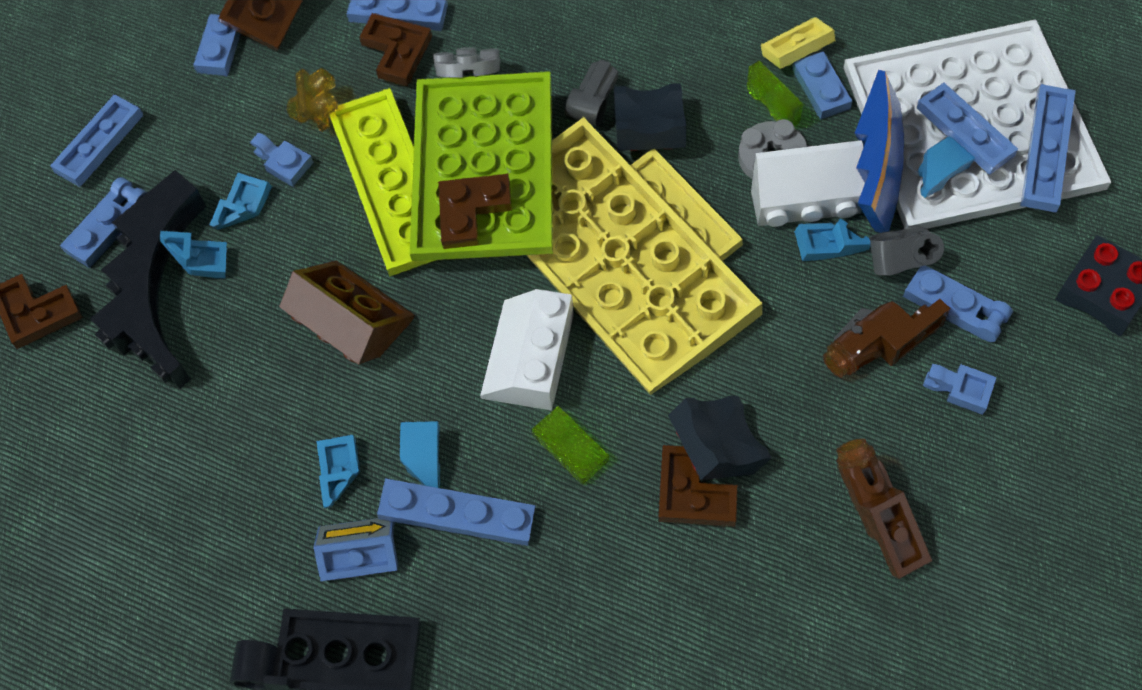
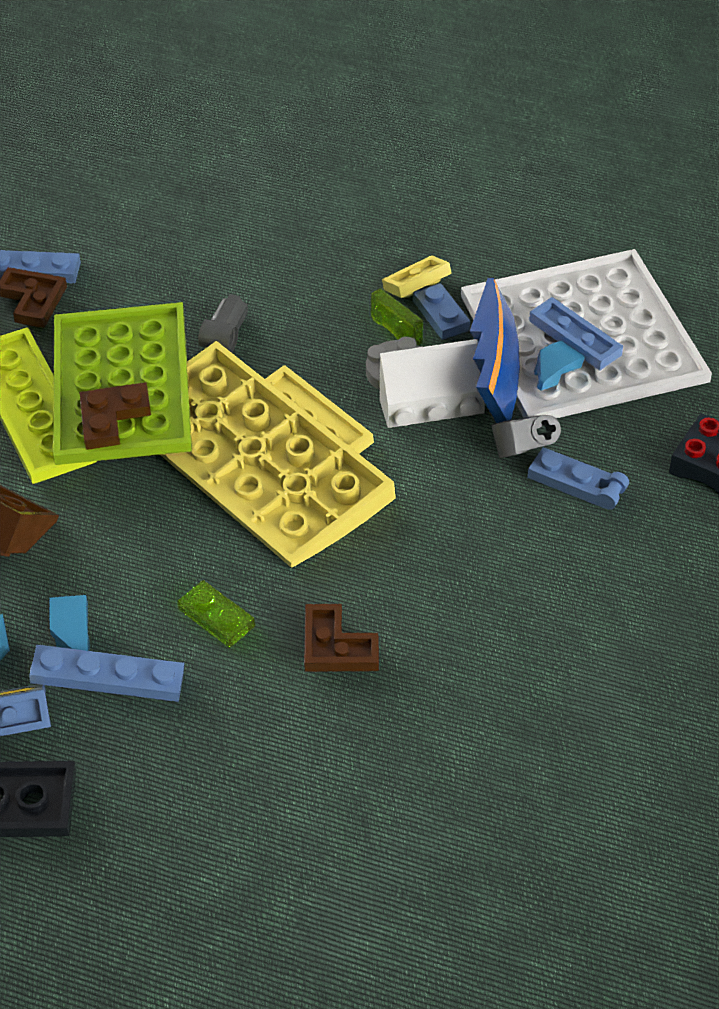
camera: 10 degrees left, 15 degrees down
(467, 62) = (102, 300): light grey plate -> none
(529, 349) = (173, 534): white slope -> none
(649, 118) = (279, 340): black brick -> none
(718, 438) = (357, 592): black brick -> none
(828, 241) = (454, 434): dark azure slope -> none
(882, 333) = (510, 503): reddish brown plate -> none
(882, 508) = (515, 640): reddish brown plate -> none
(965, 387) = (589, 543): medium blue plate -> none
(1048, 148) = (651, 346): medium blue plate -> none

